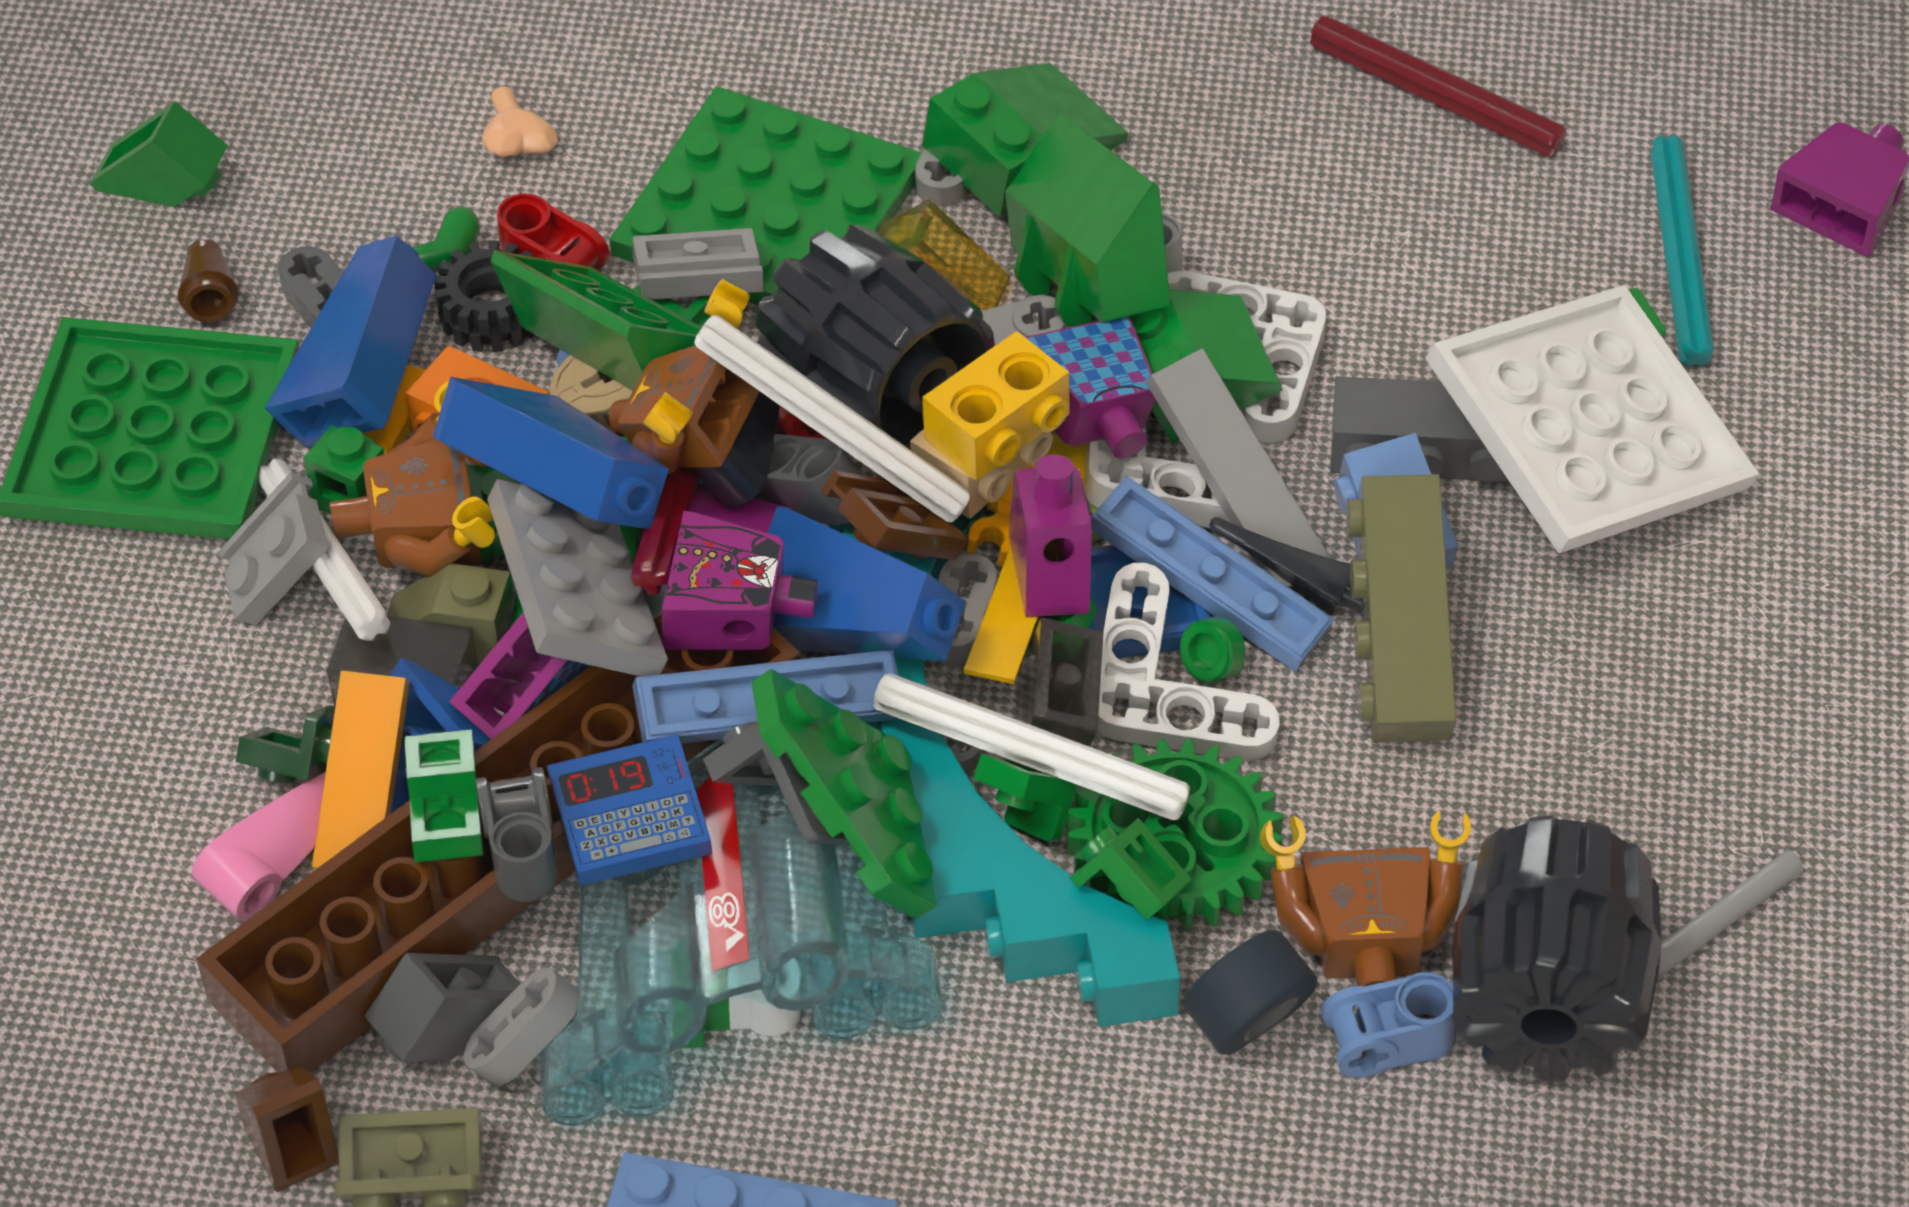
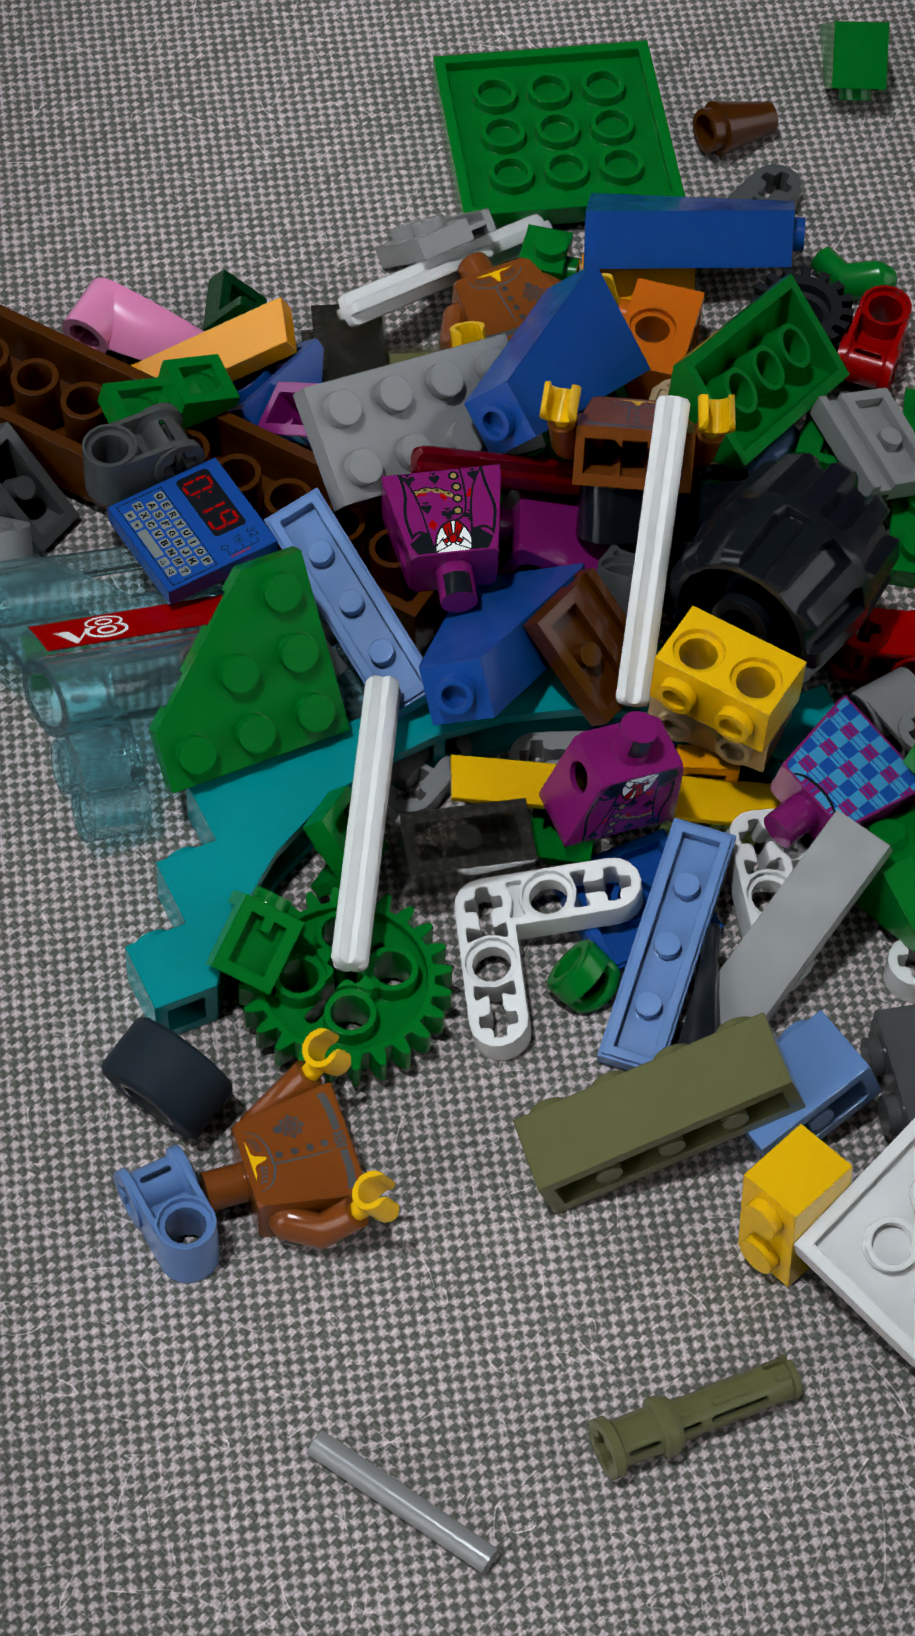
camera: 70 degrees right, 5 degrees up
(1520, 538) = (785, 1197): none -> yellow brick
(1556, 948) = (254, 1315): black wheel -> none
(1694, 697) = (667, 1423): none -> olive pin

